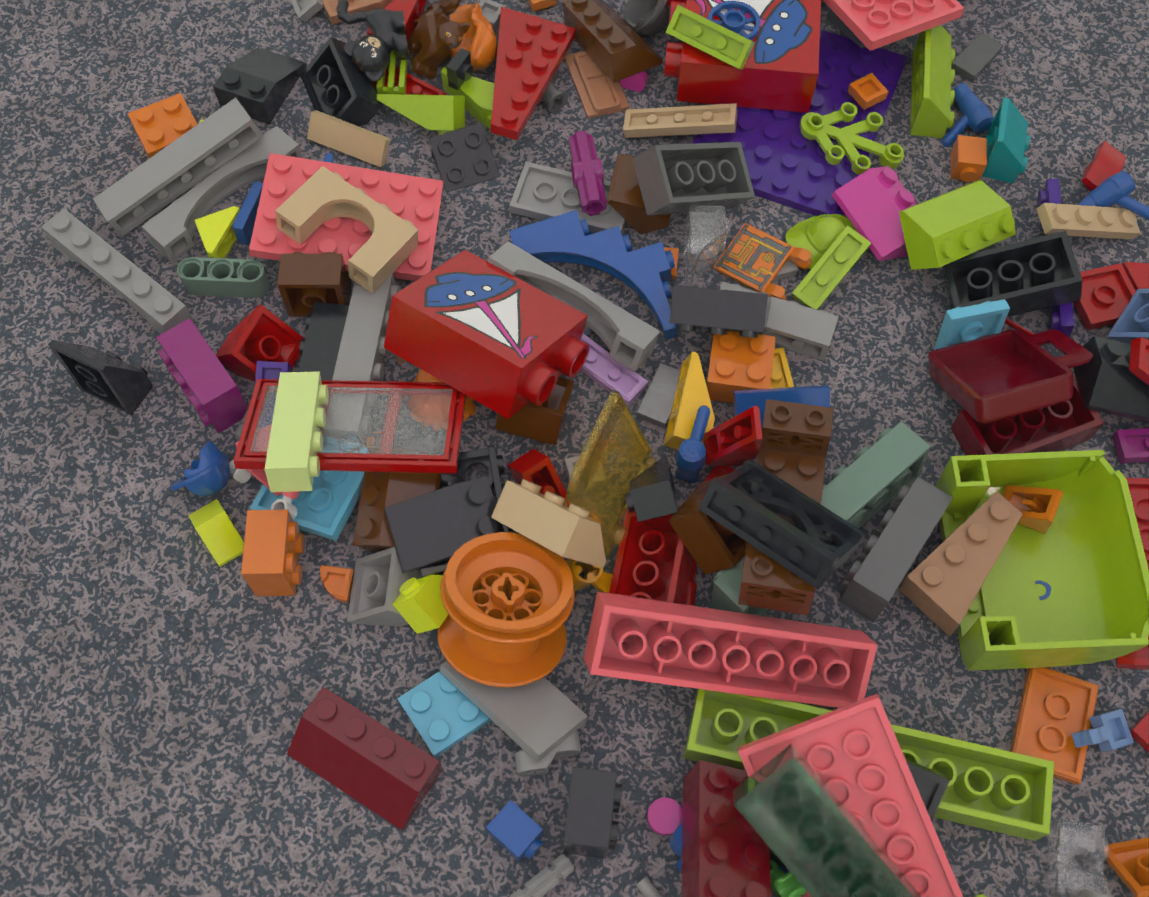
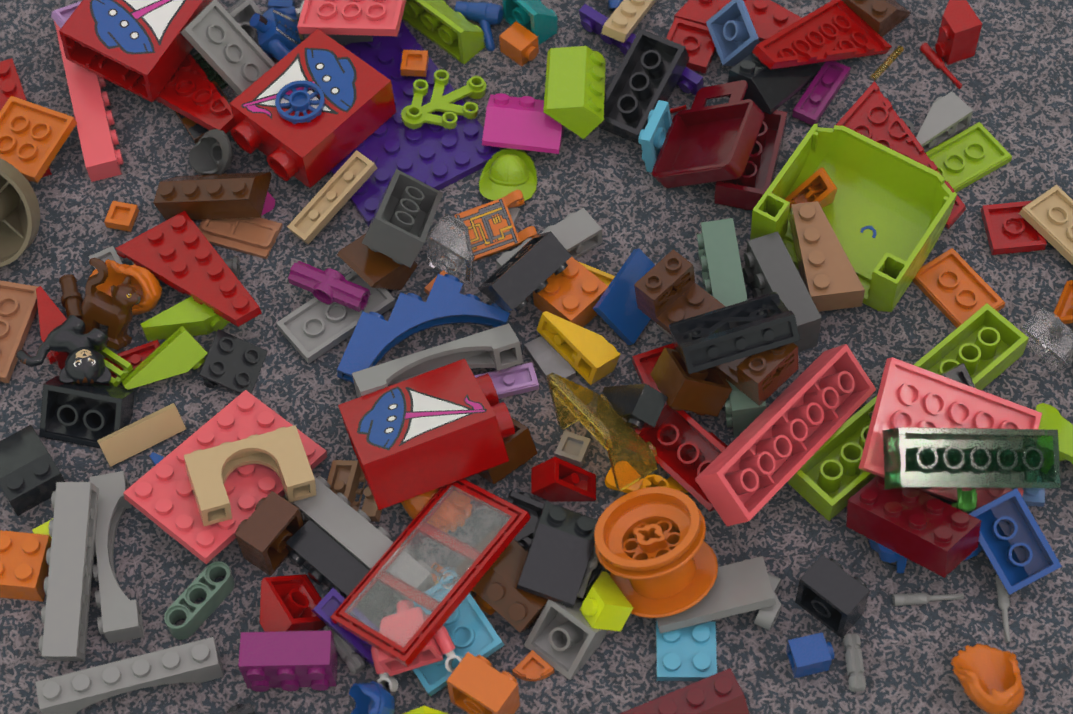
camera: 50 degrees left, 5 degrees down
(218, 232) = (151, 583): neon yellow slope -> none
(246, 217) = (153, 546): blue tile -> none
(296, 432) = (417, 601): yellowish green brick -> none
(459, 69) = (161, 311): black plate -> none
(550, 522) = (616, 478): tan slope -> none
(664, 816) = (861, 558): dark pink tile -> none
(692, 451) = (622, 363): blue piece -> none
(710, 37) = (303, 124): lime plate -> none
(734, 440) = (637, 328): red slope -> none
(831, 269) = (540, 187): lime plate -> none
(1107, 730) = (985, 264): medium blue plate -> none

